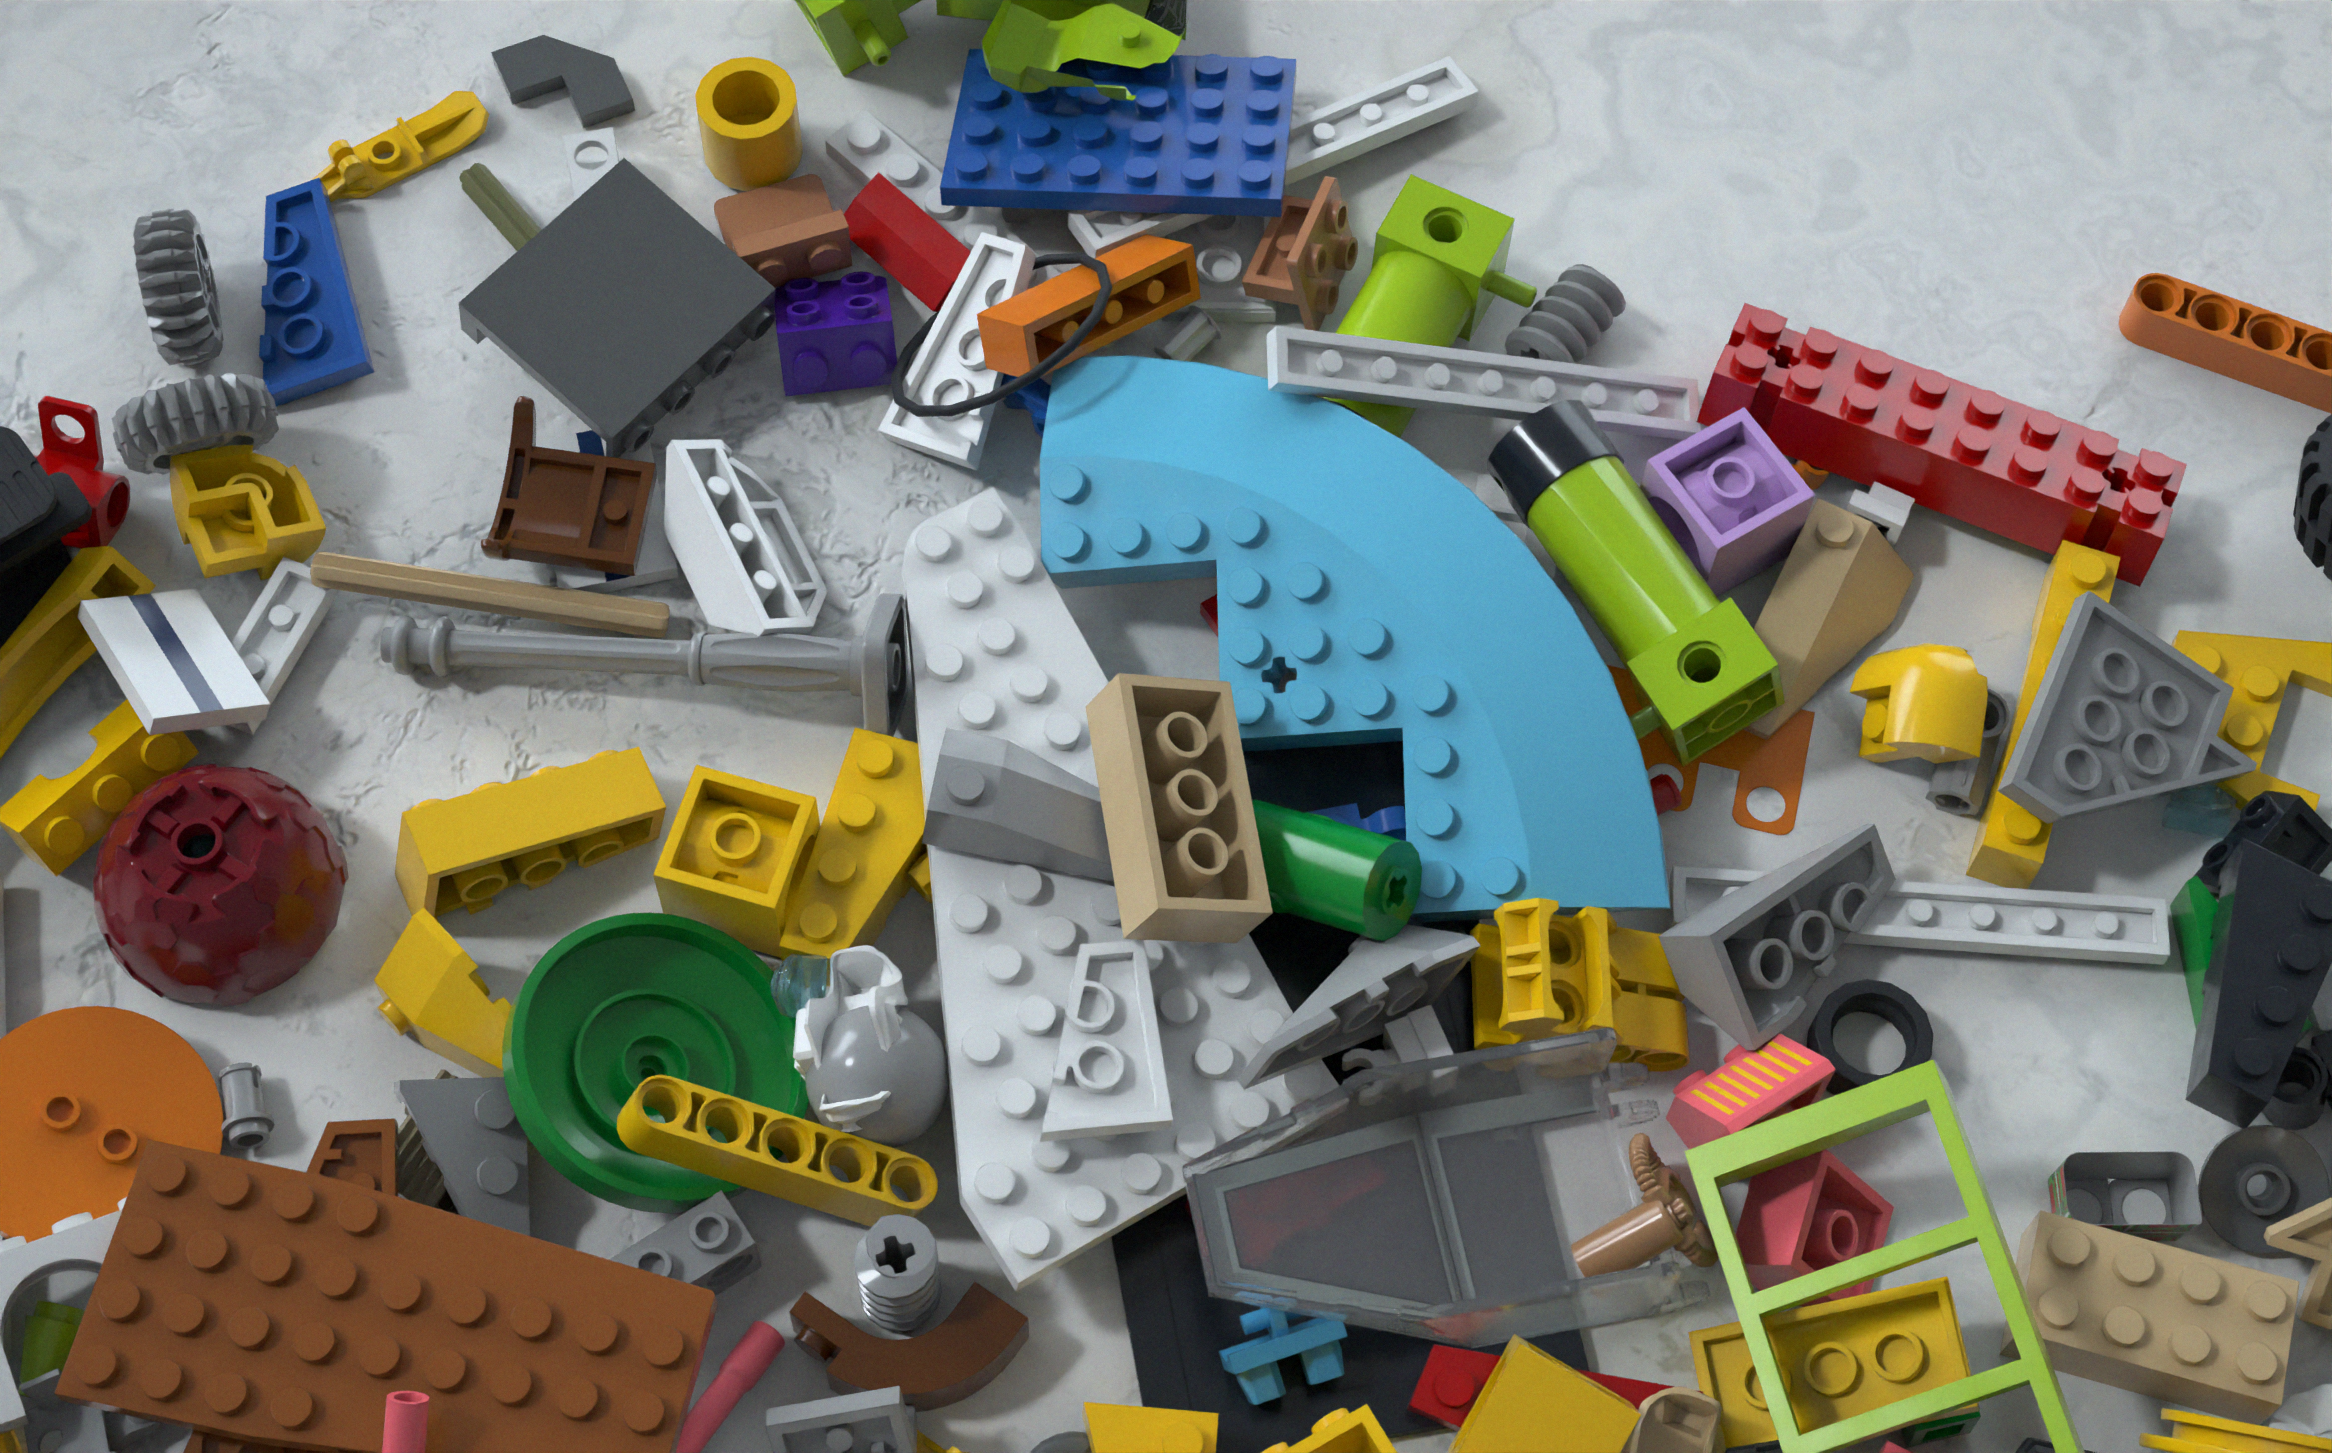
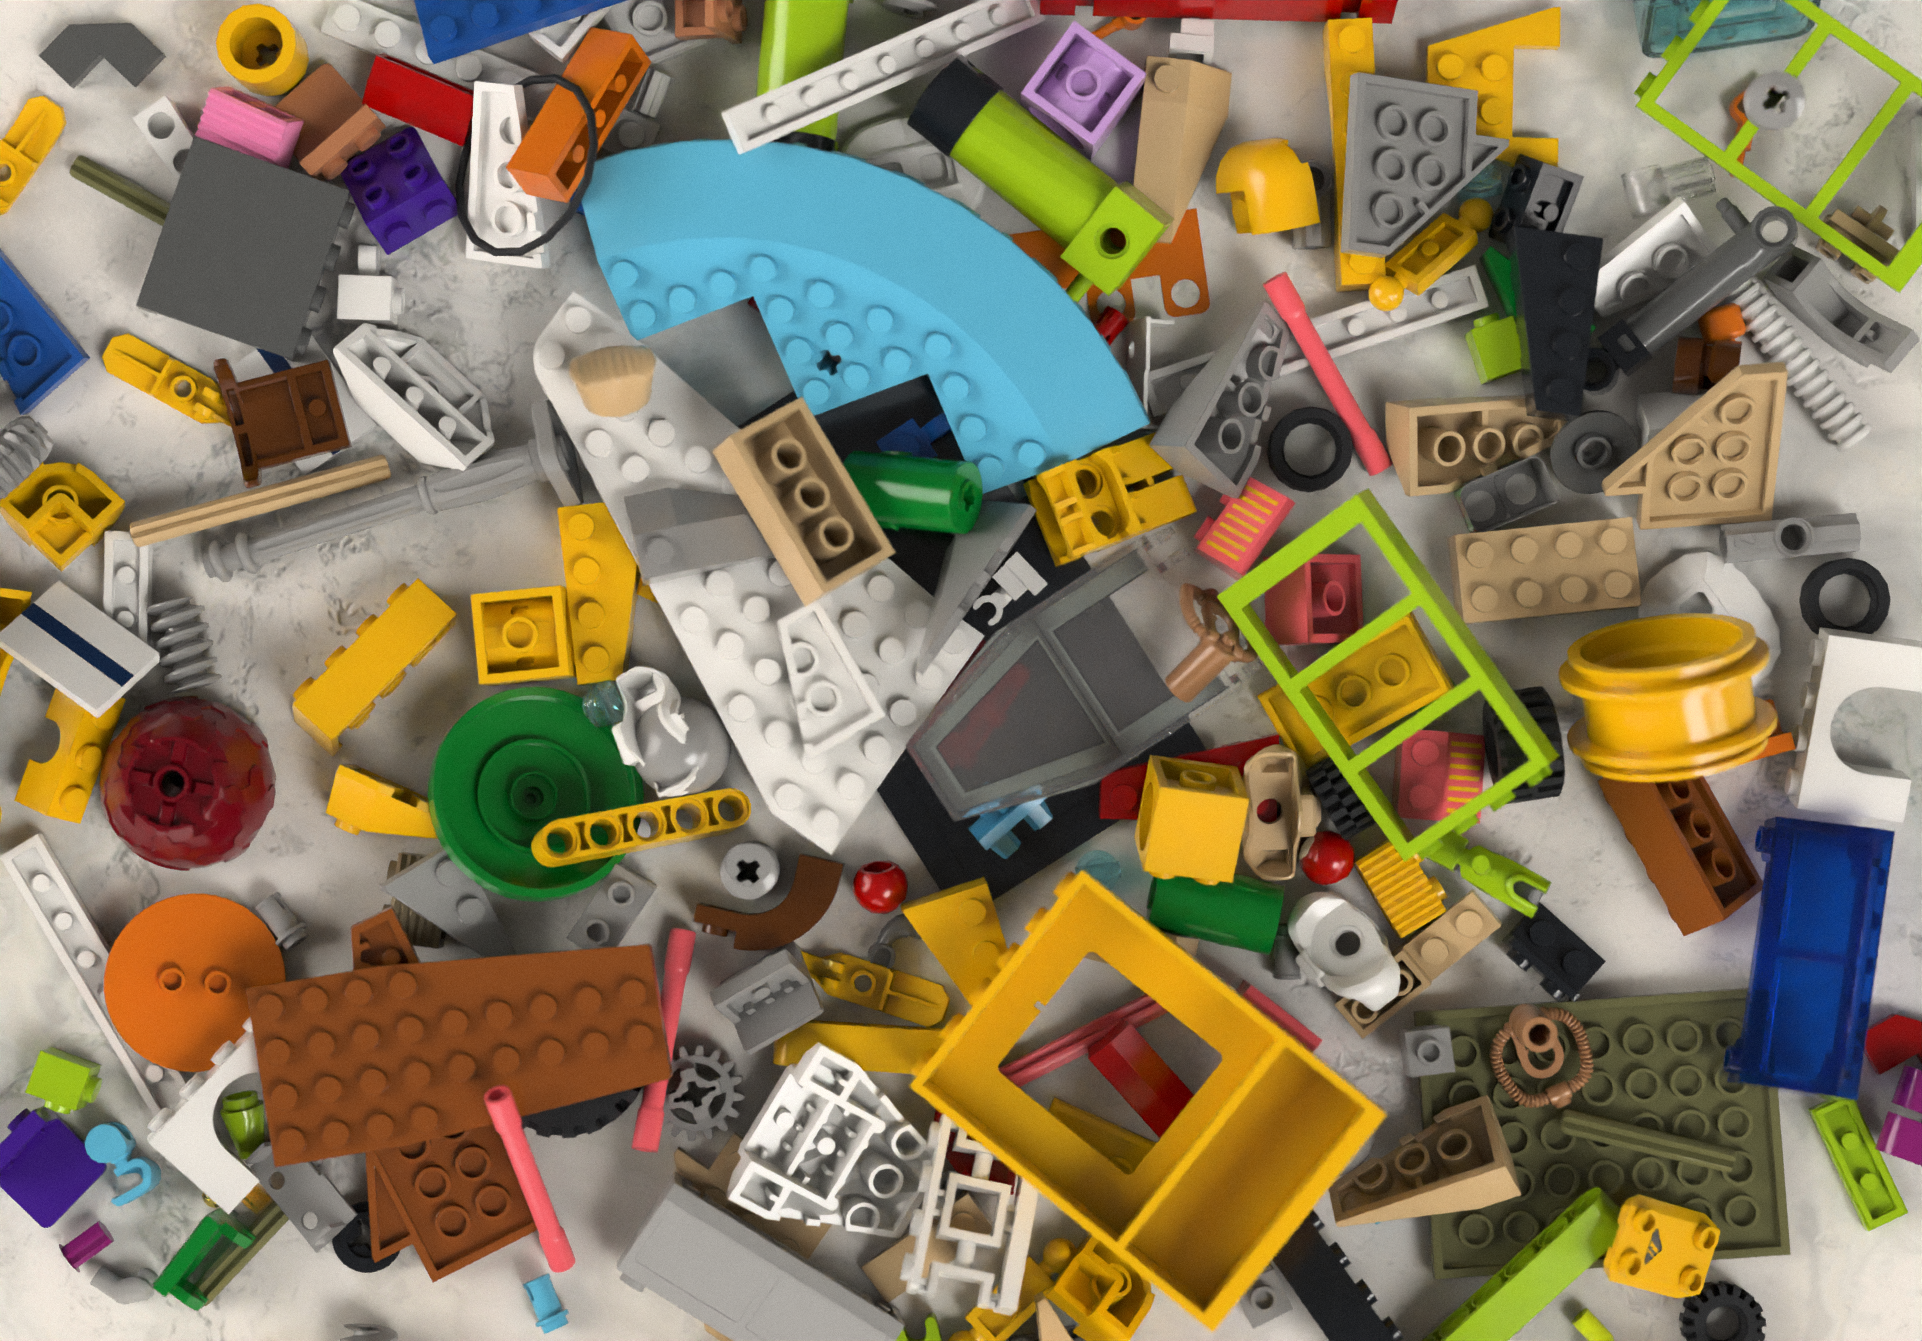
camera: 15 degrees left, 25 degrees up
(305, 717) = (183, 644): none -> light grey piece
(445, 425) = (160, 377): none -> yellow piece
(698, 190) = (249, 126): none -> bright pink brick
(744, 418) = (367, 295): none -> white brick
(999, 582) = (614, 379): none -> tan hair
(1064, 1377) = (880, 886): none -> red piece
(1686, 826) = (1139, 365): none -> white piece
(1906, 853) = (1293, 312): none -> coral piece
(2070, 1096) = (1455, 440): none -> tan wedge
(2110, 862) = (1431, 254): none -> yellow plate
(2162, 1011) = (1494, 347): none -> lime brick

